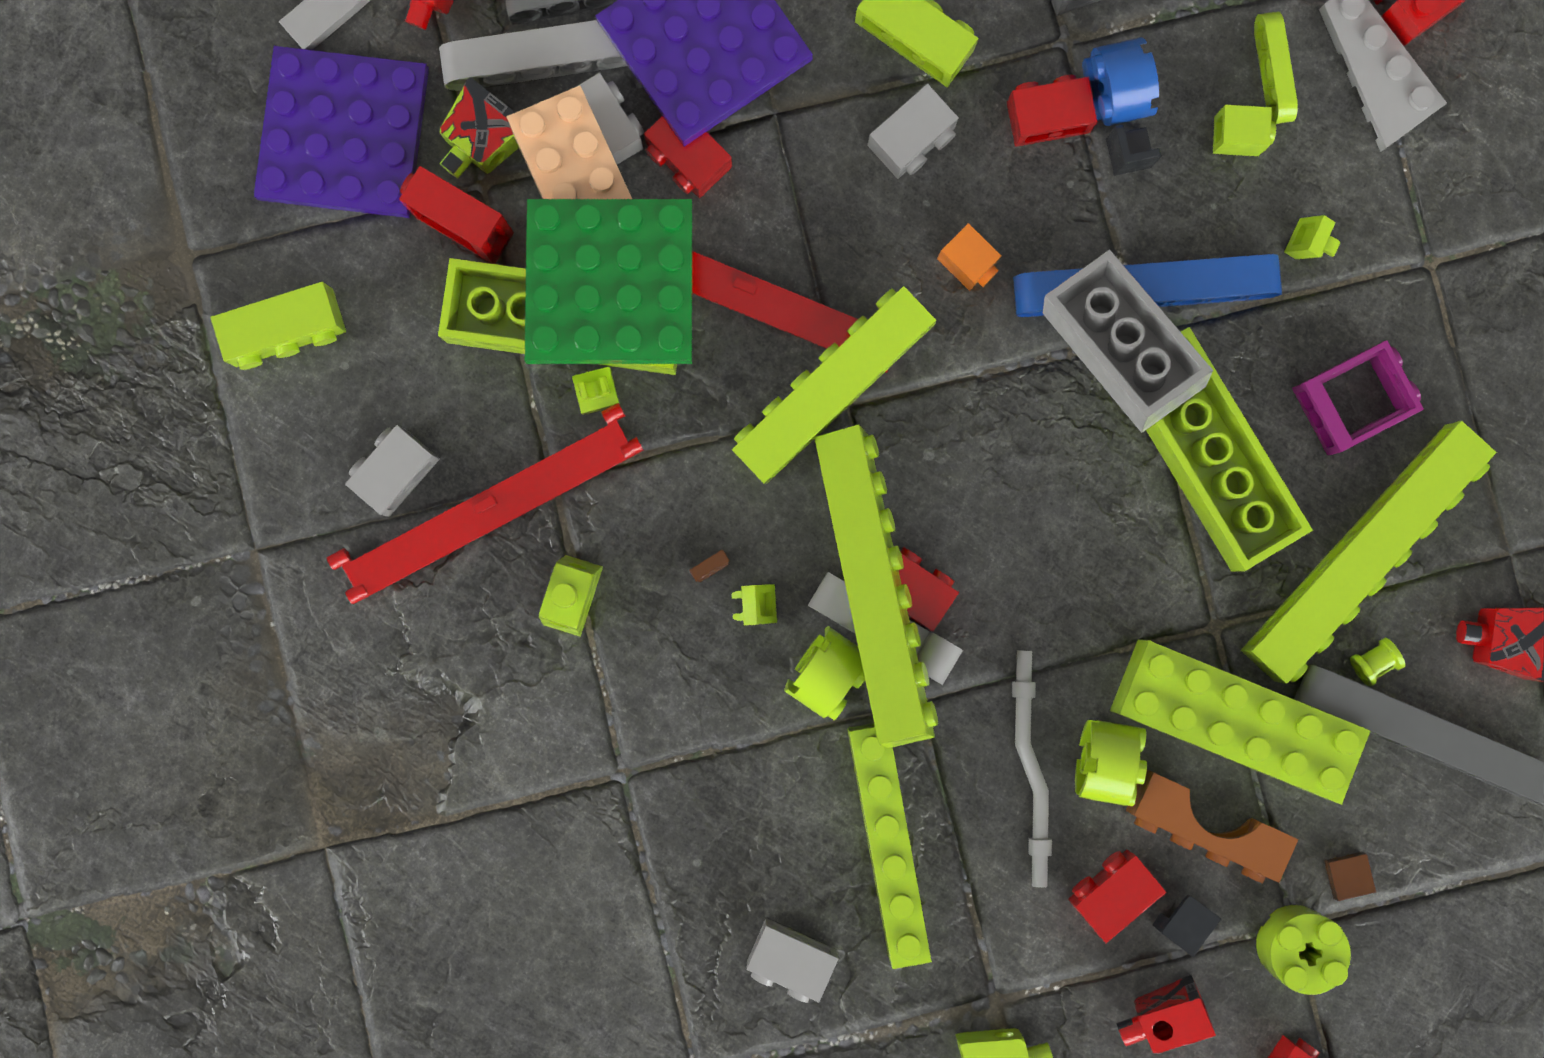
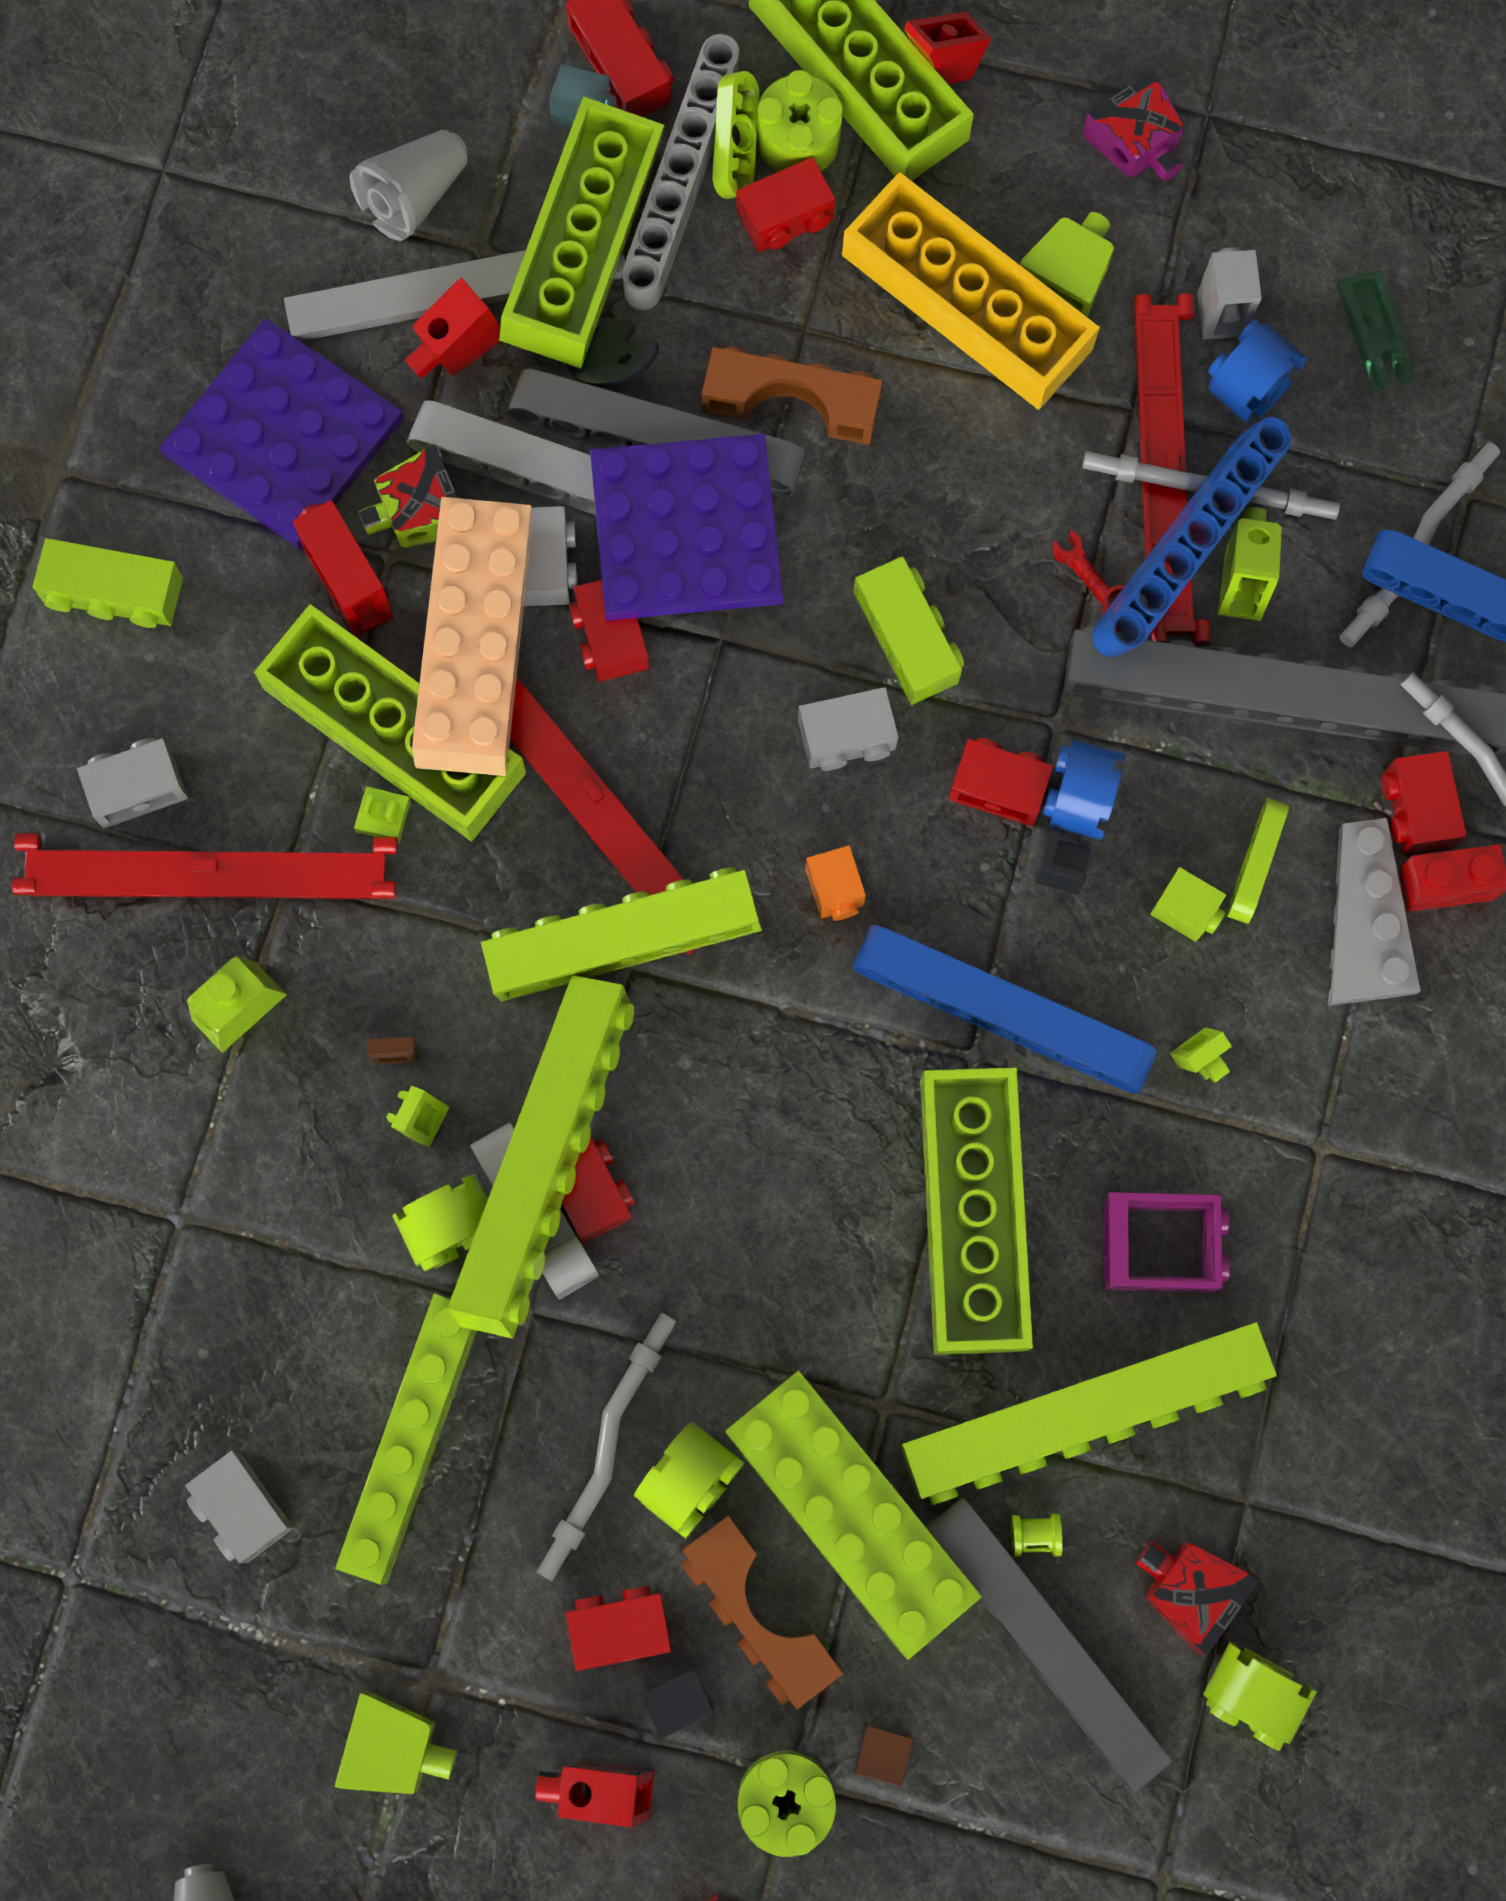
camera: 30 degrees right, 10 degrees down
(608, 281) = (444, 703): green plate -> none
(1126, 341) = (936, 1043): light grey brick -> none

